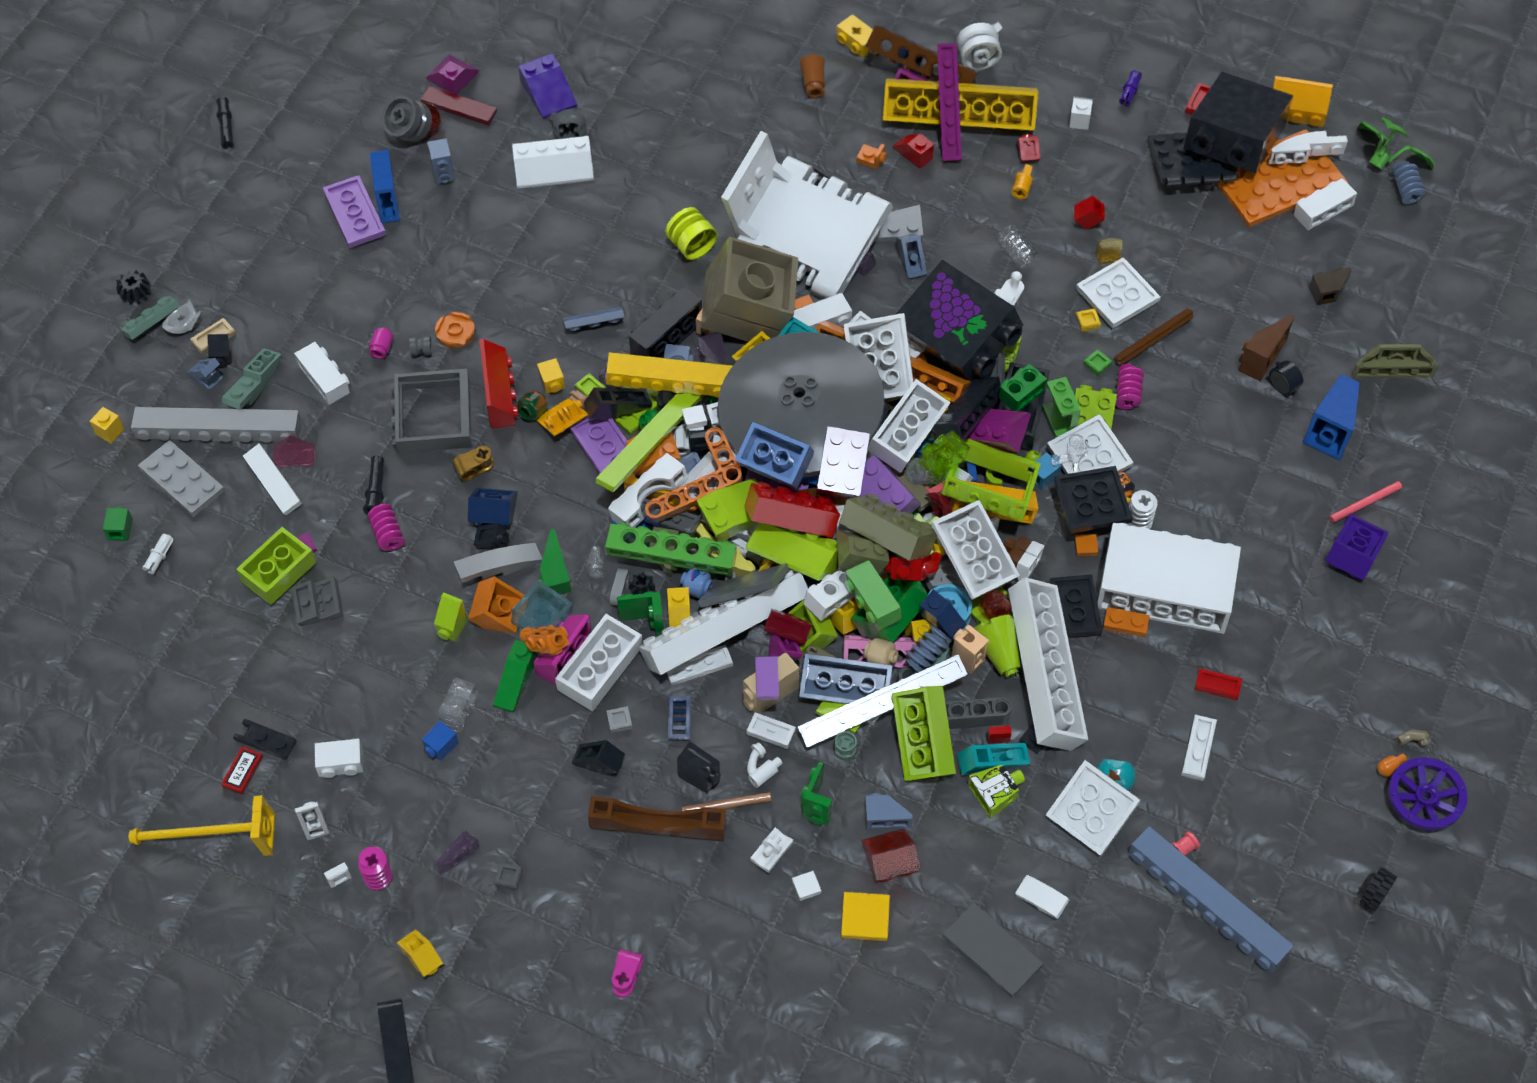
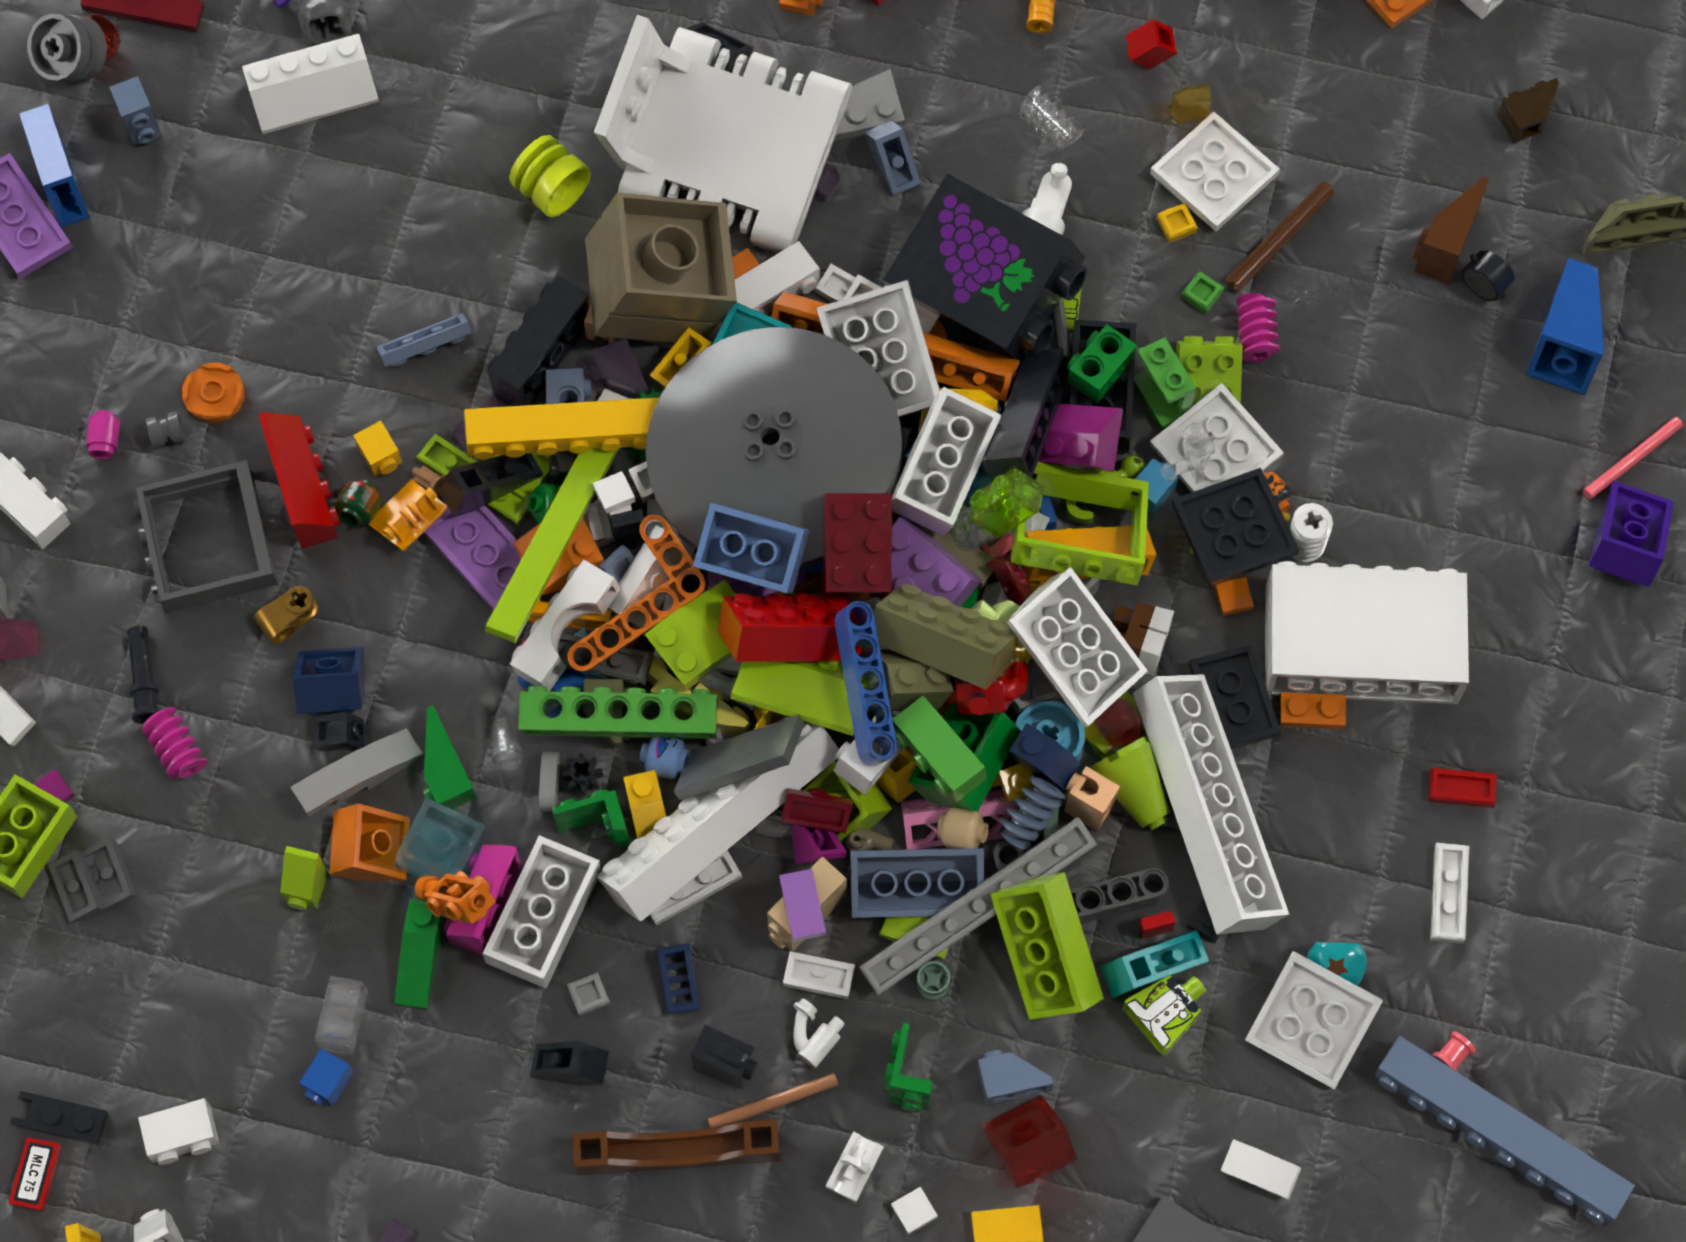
camera: 10 degrees left, 10 degrees up
(827, 554) = (858, 697): none -> blue beam

